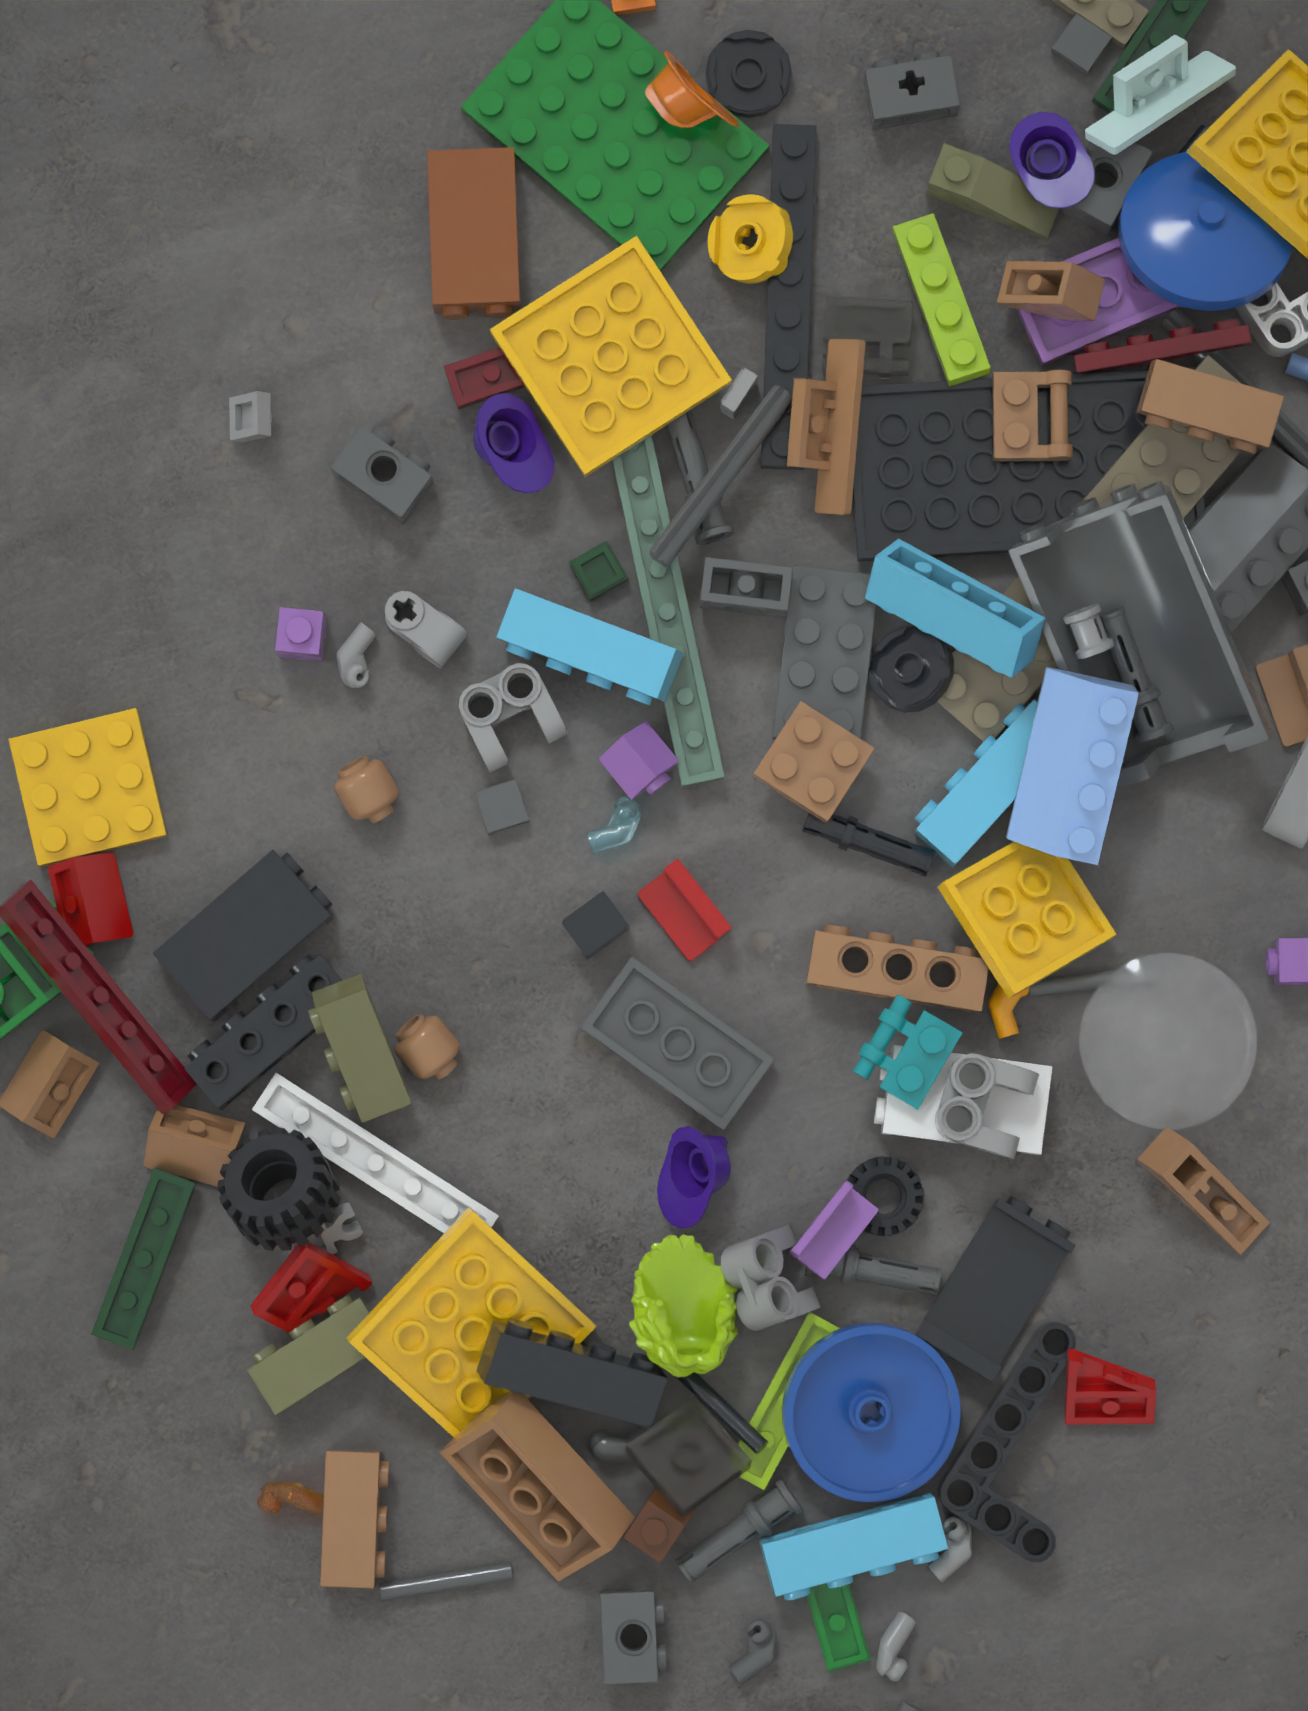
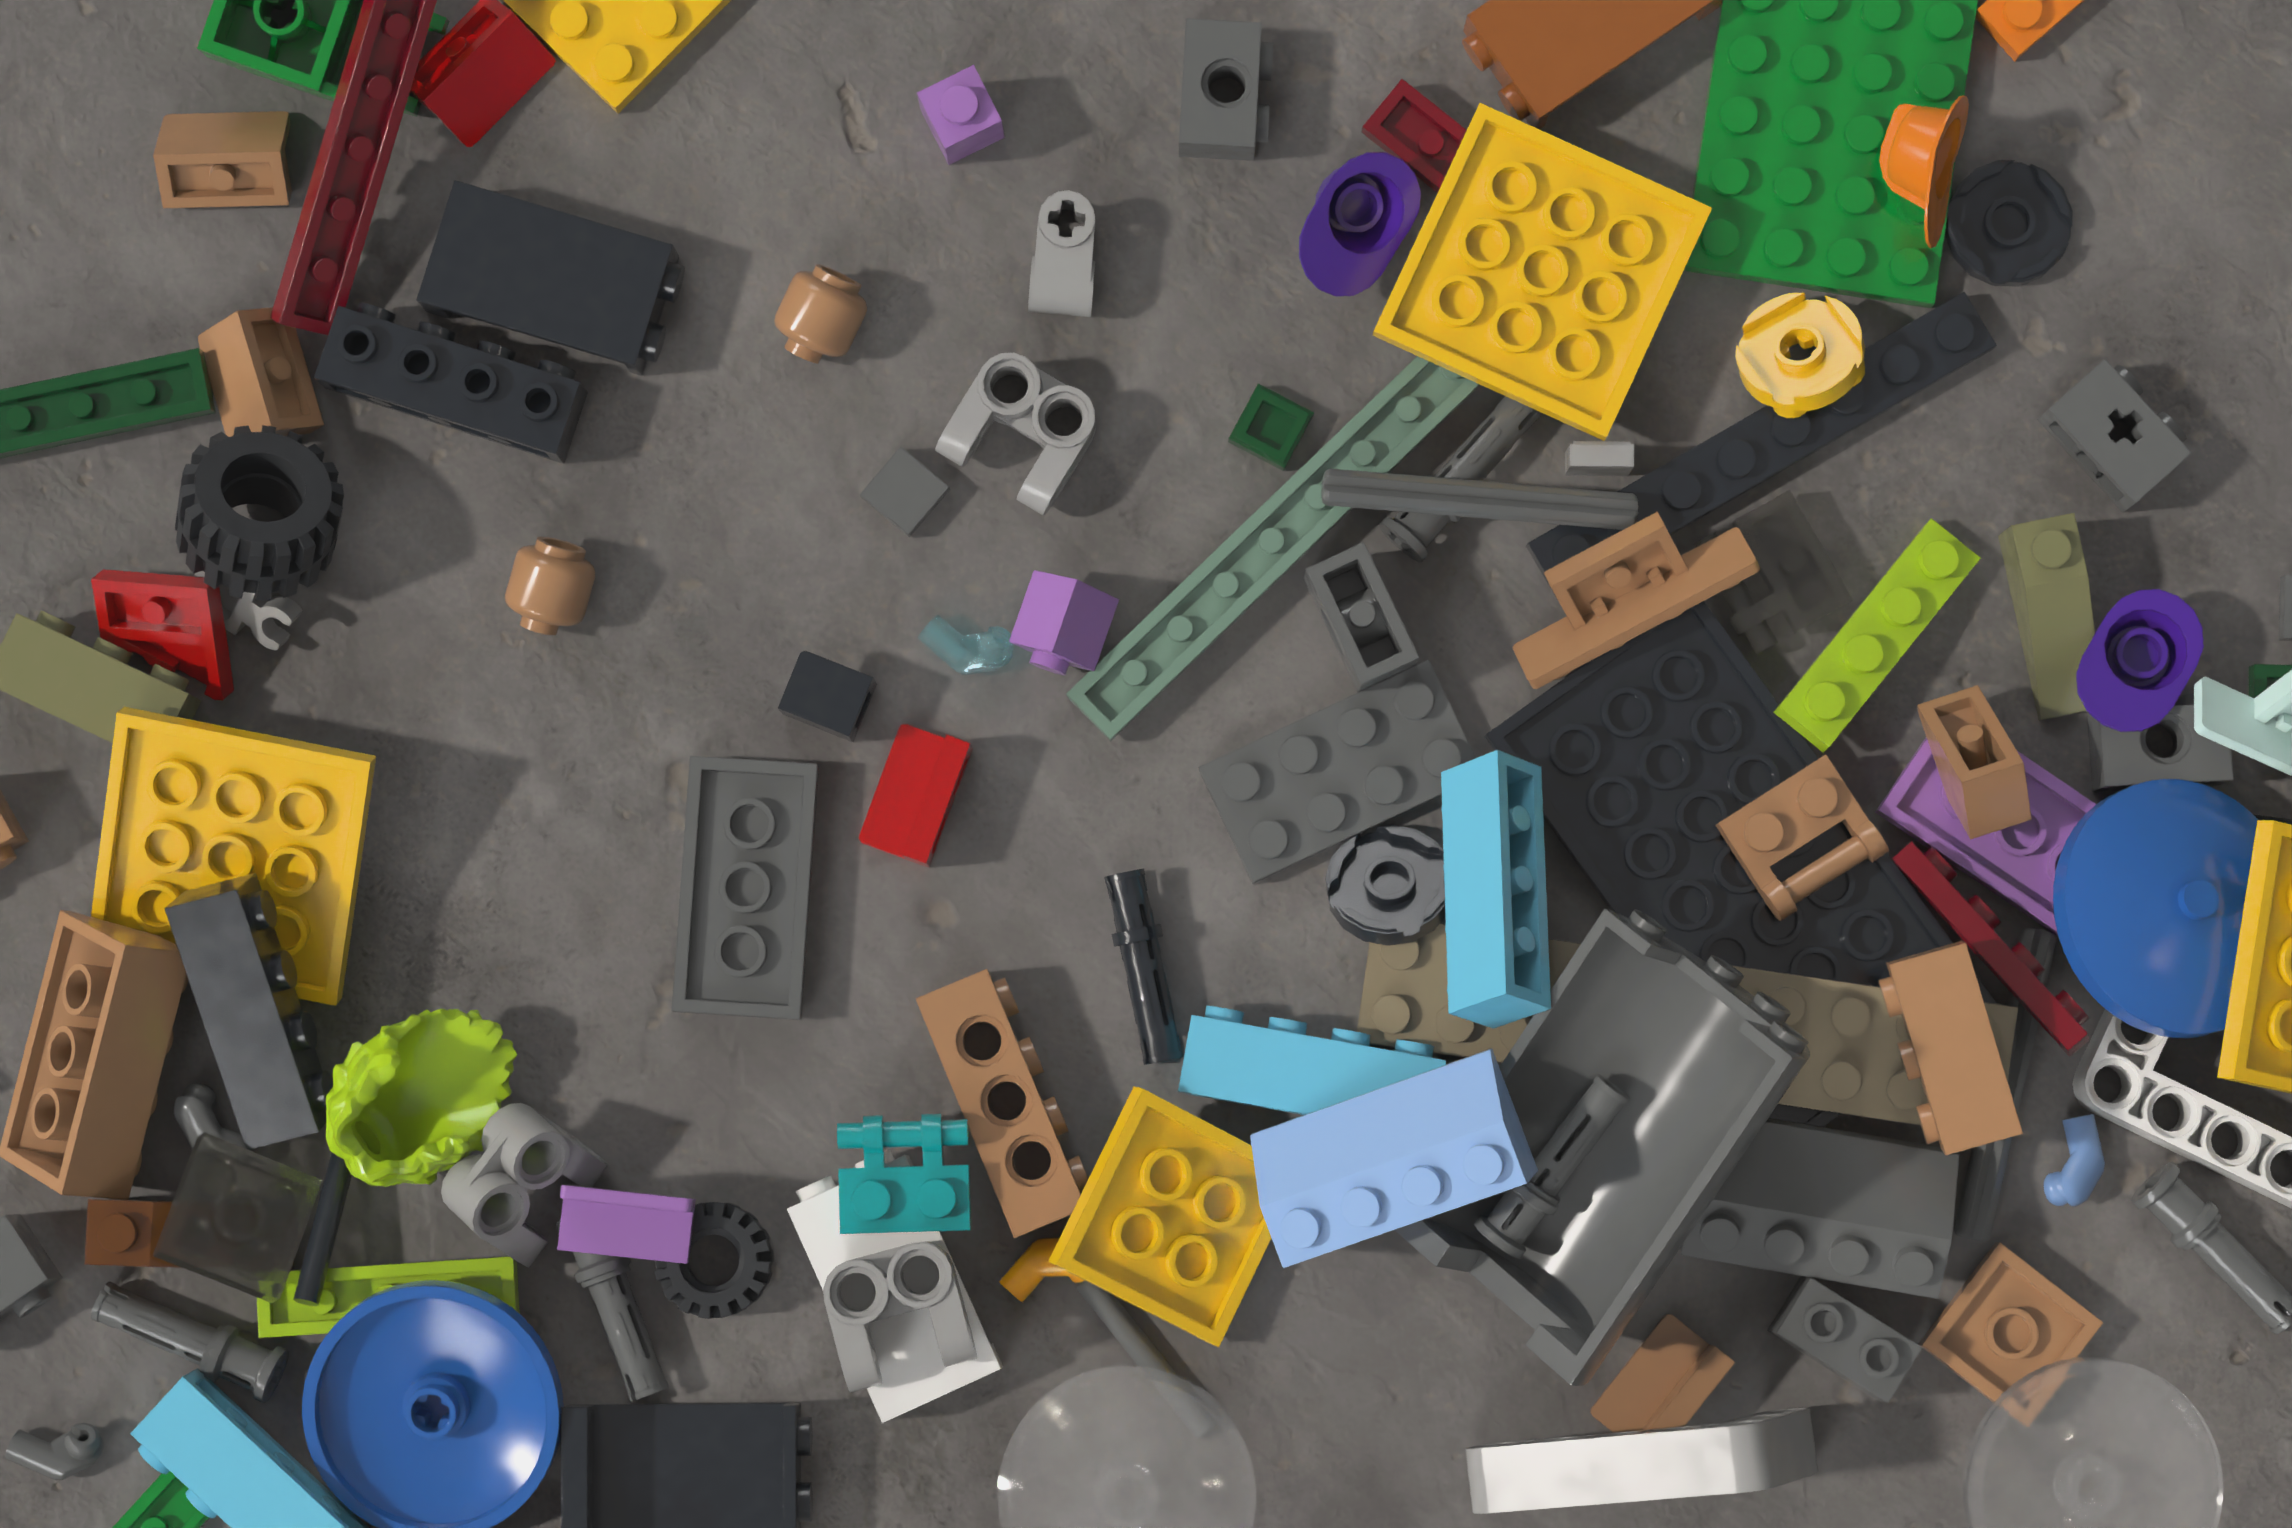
camera: 60 degrees right, 0 degrees up
(351, 657) = (973, 195): light grey arm -> none
(359, 1048) = (492, 502): olive brick -> none
(367, 1156) = (372, 598): white plate -> none
(589, 645) = (1165, 472): medium azure brick -> none
(690, 1174) = (592, 1005): dark purple piece -> none
(813, 762) = (1195, 836): medium nougat plate -> none
(1088, 631) = (1570, 1074): light grey bush -> none

